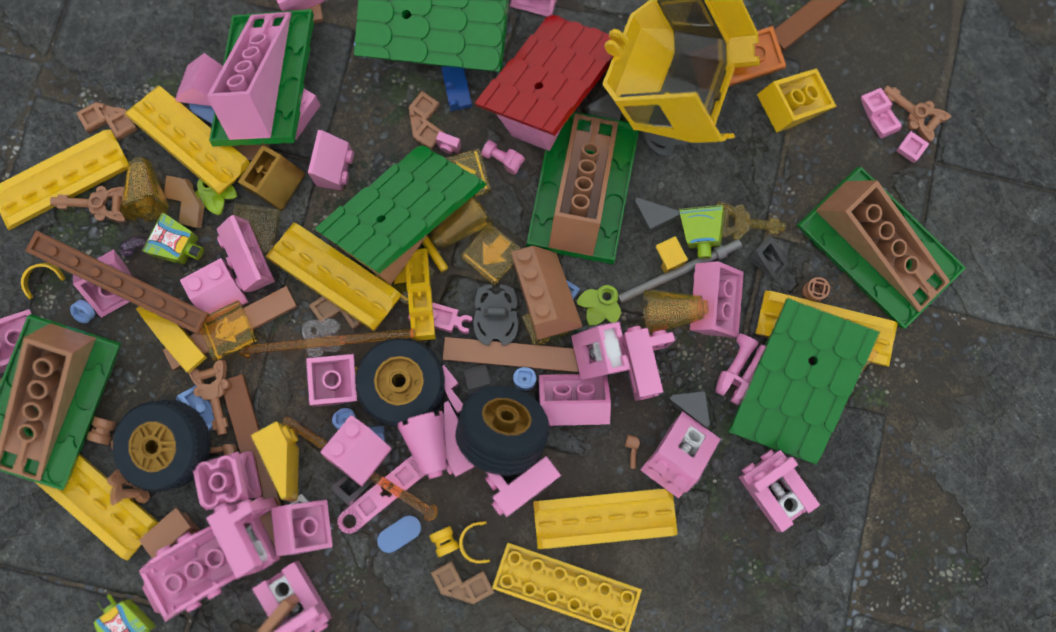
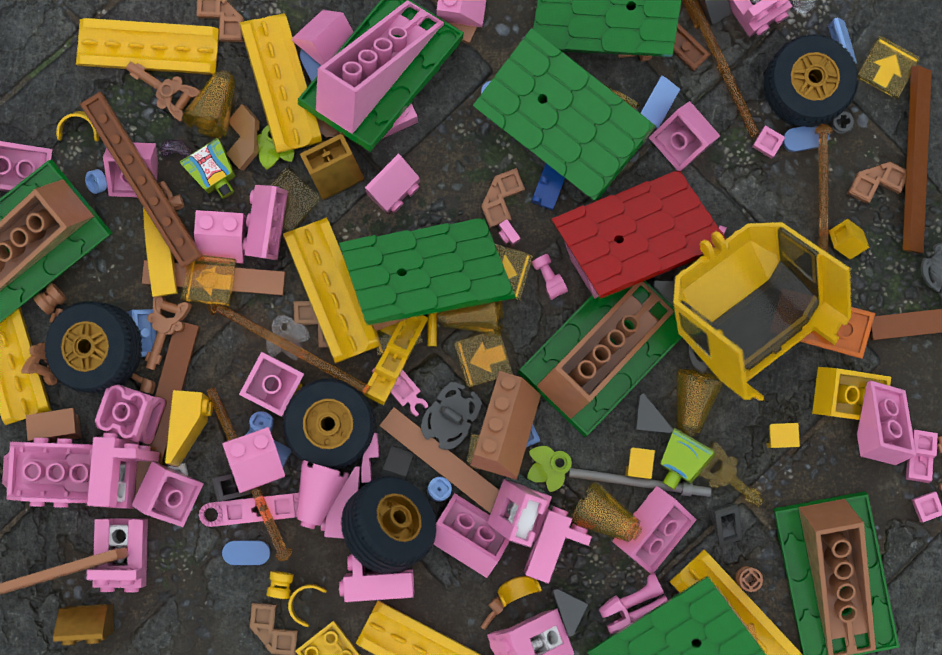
camera: 30 degrees right, 5 degrees up
(160, 284) = (176, 201): none -> nougat hand
(640, 416) = (517, 588): none -> yellow helmet
(680, 177) = (695, 399): none -> clear yellow cone
(767, 162) = (783, 435): none -> yellow panel
(839, 105) = (885, 425): none -> bright pink slope

